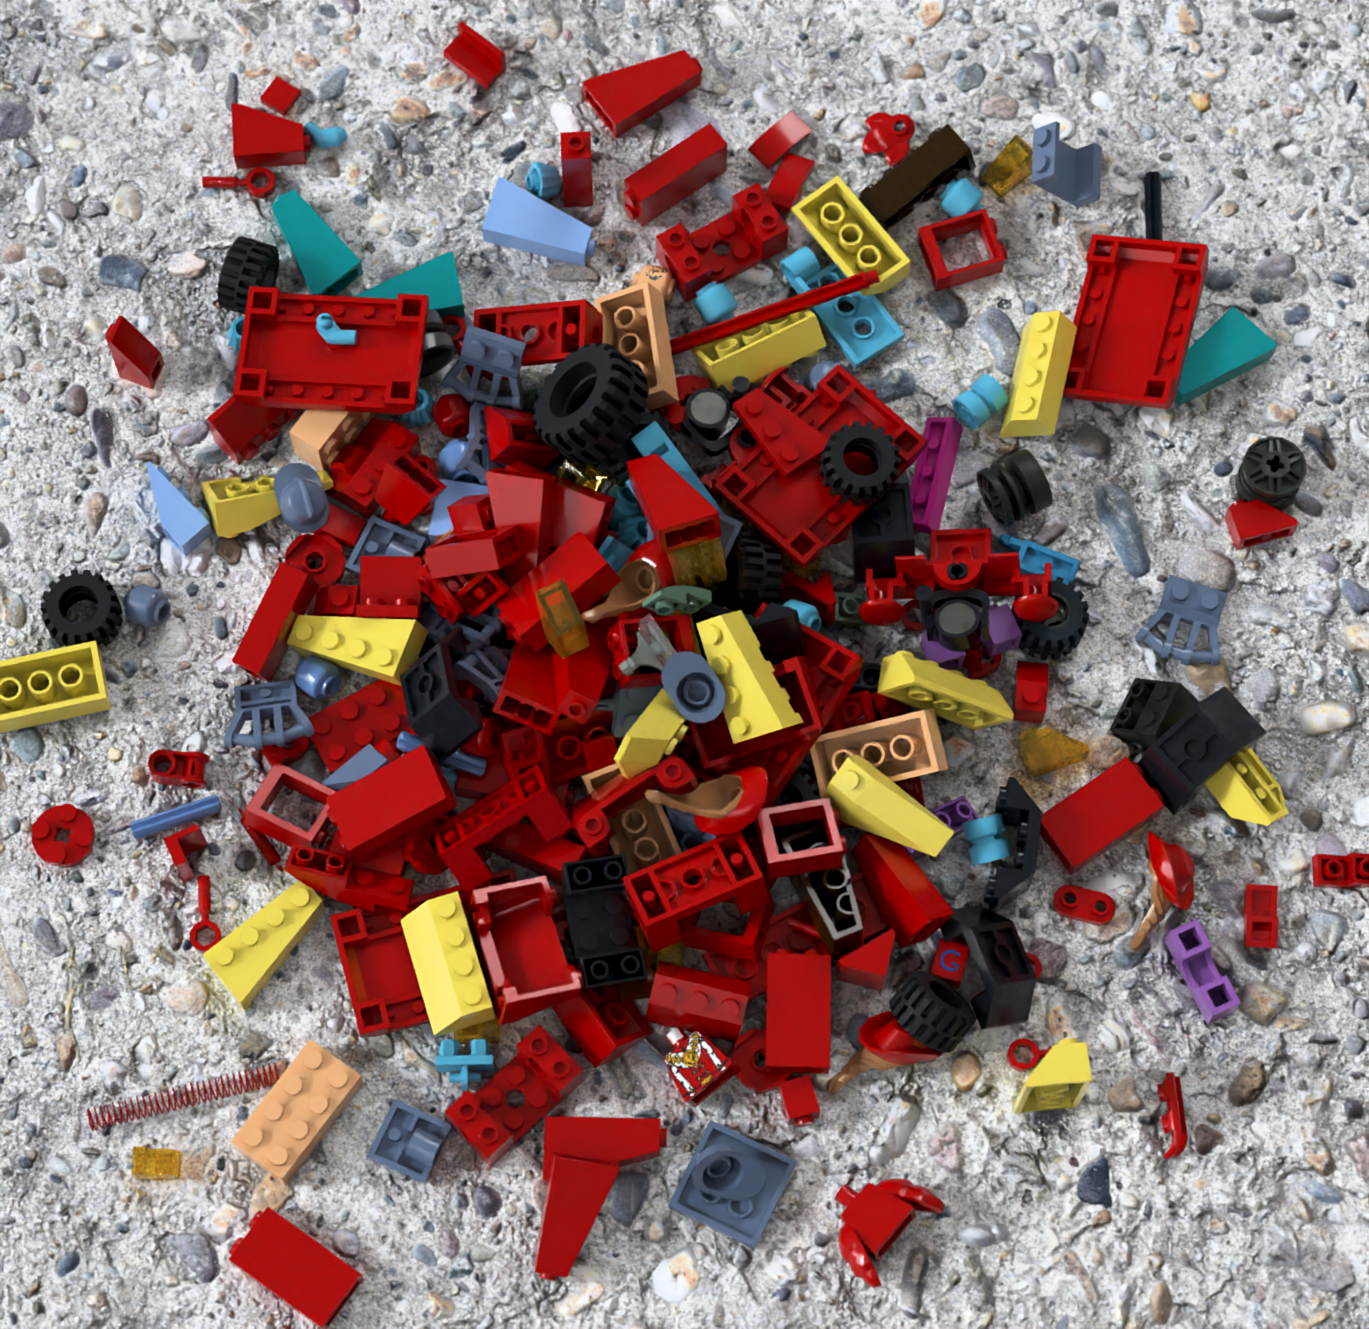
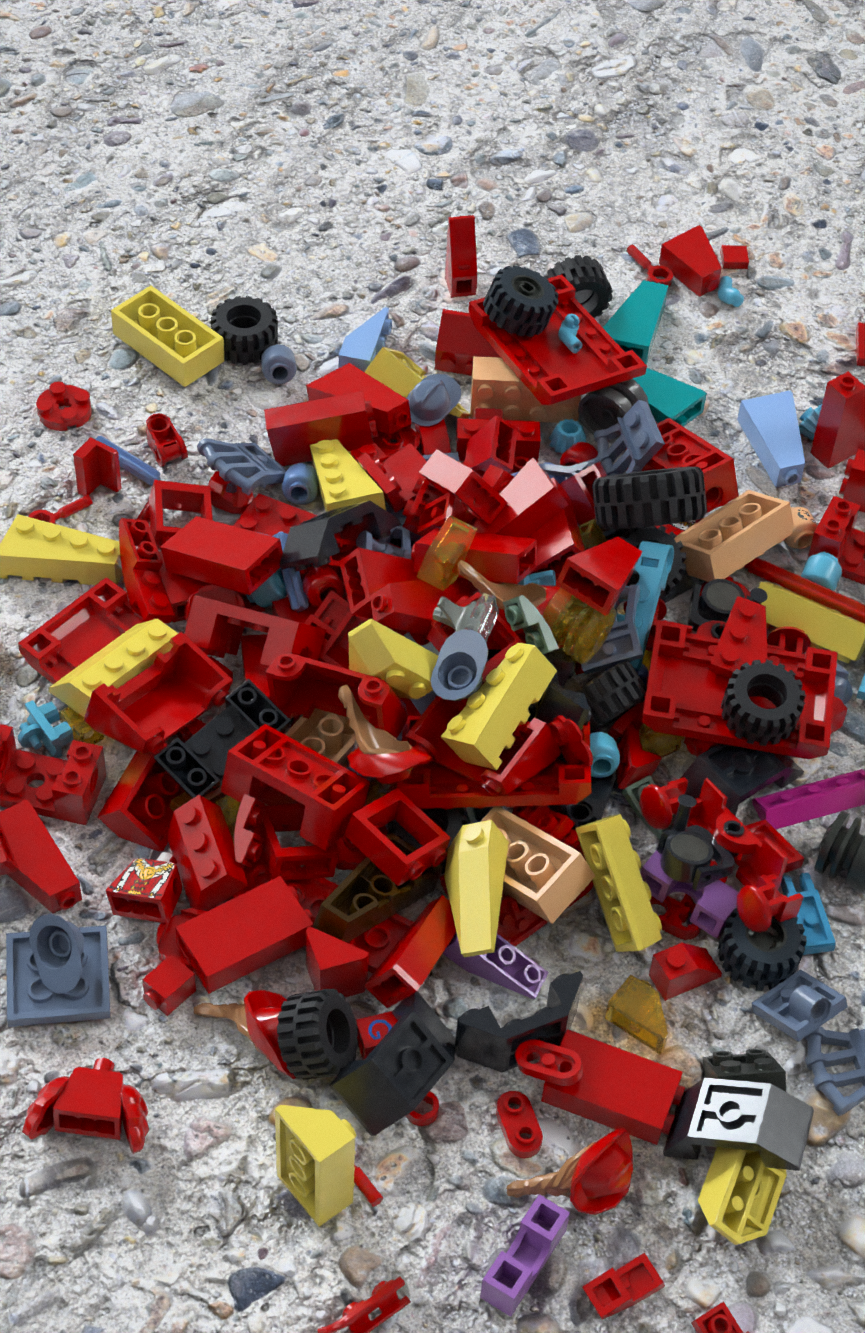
camera: 55 degrees right, 20 degrees down
(249, 561) = (389, 408): none -> red slope
(276, 351) = (520, 301): none -> black wheel
(712, 957) = (248, 845): none -> red slope
(807, 644) = (570, 740): none -> red plate
(987, 839) = (519, 999): medium azure wheel -> none
(1062, 849) = (551, 1062): none -> red plate
(1118, 628) = (799, 1005): none -> sand blue plate

